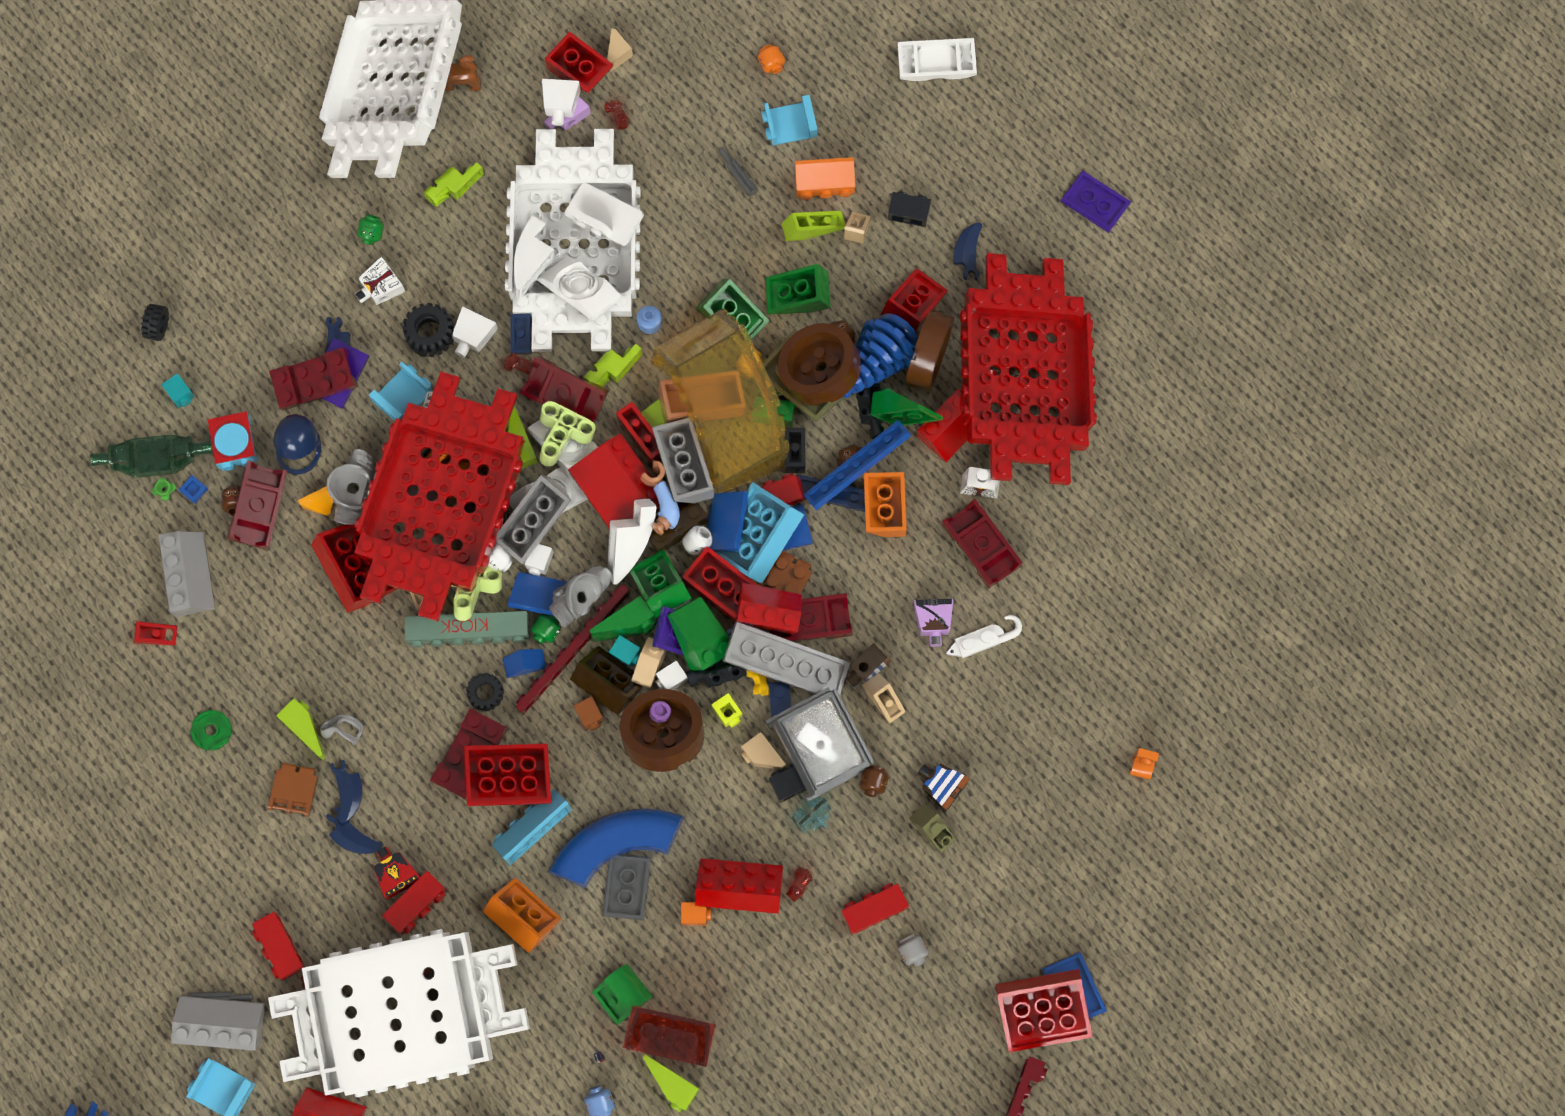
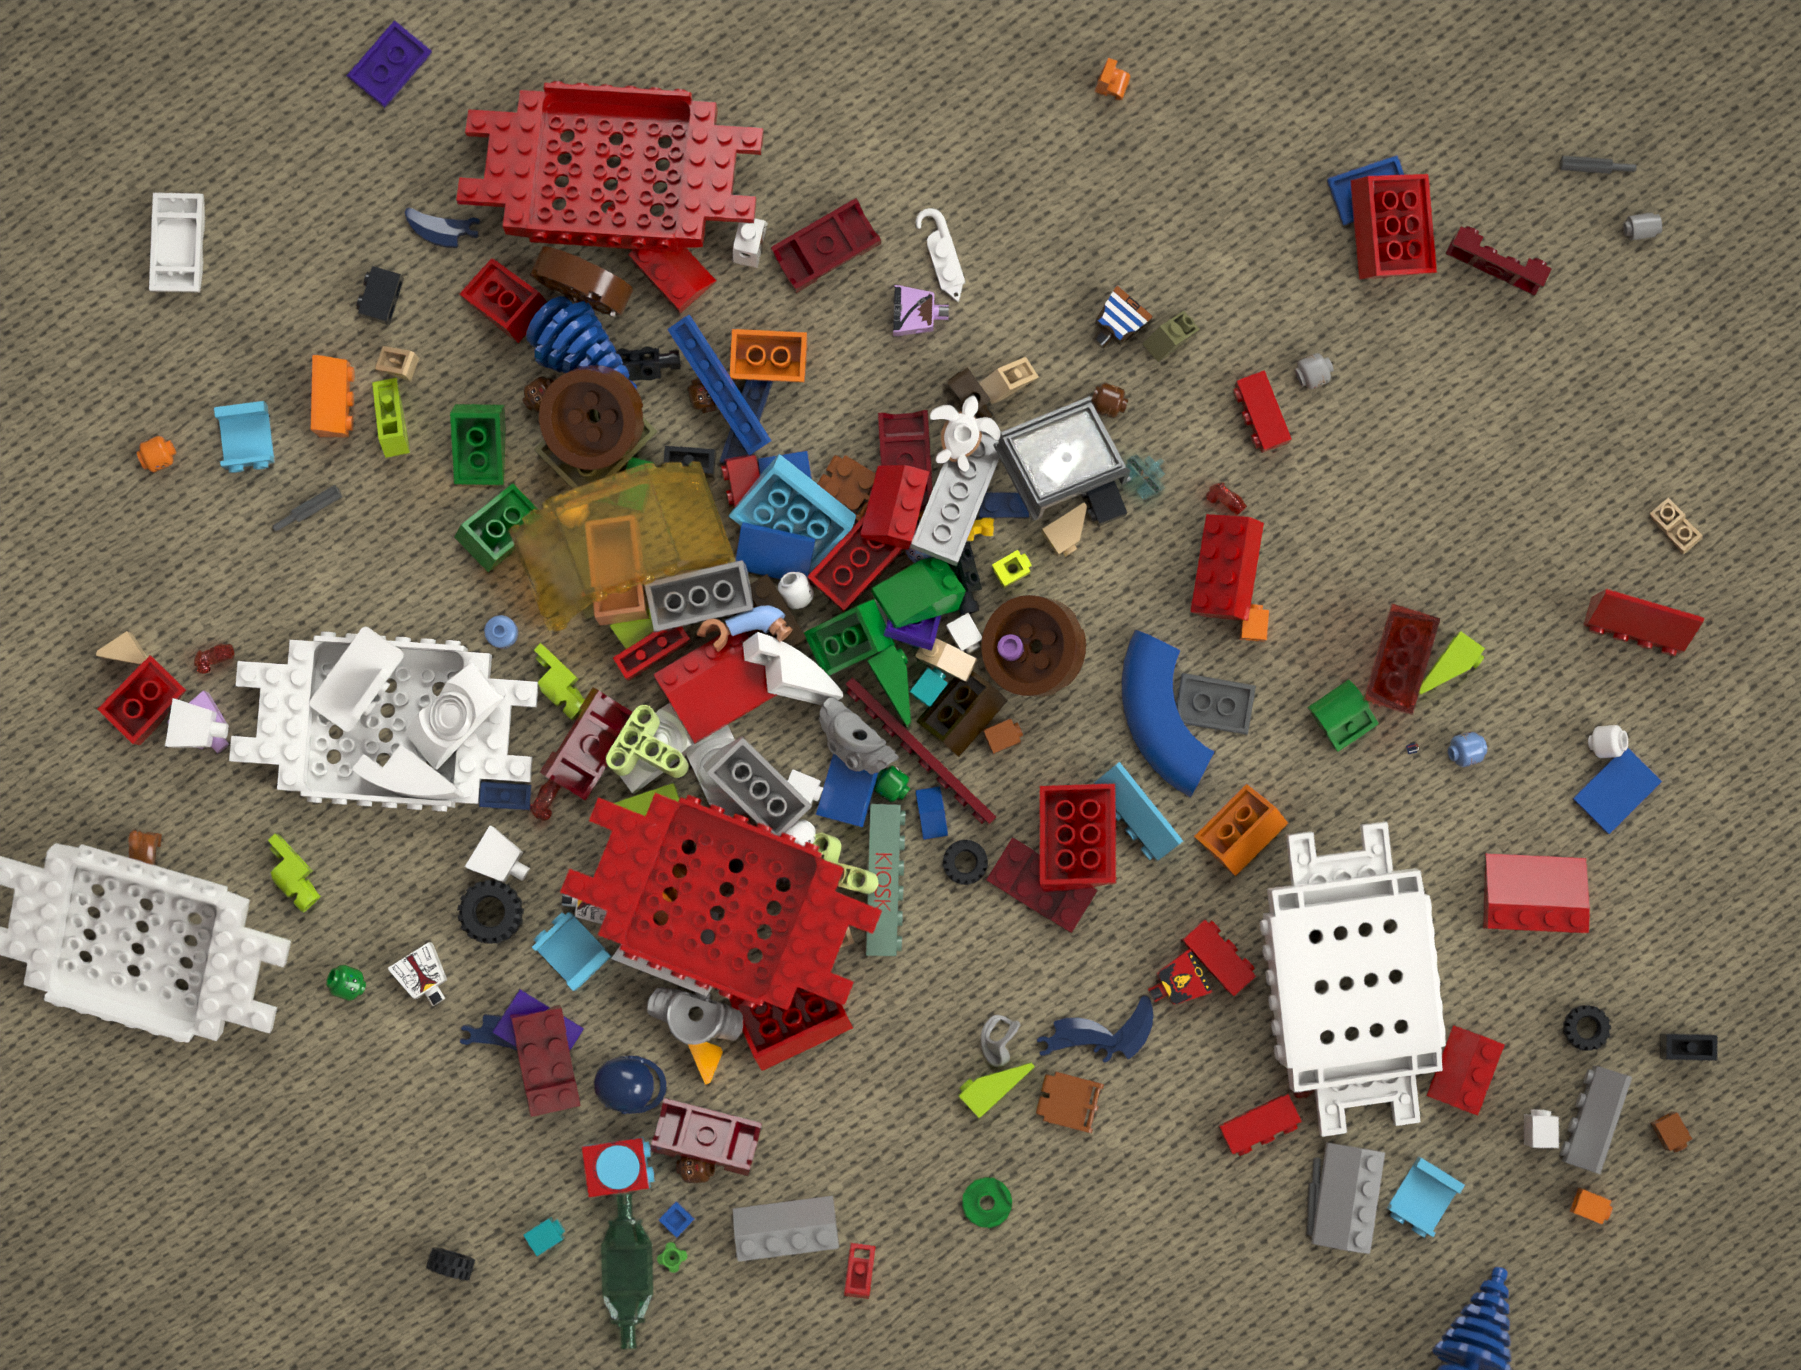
camera: 85 degrees left, 10 degrees up
(834, 658) = (962, 432): none -> white animal
(892, 407) = (649, 328): green slope -> none

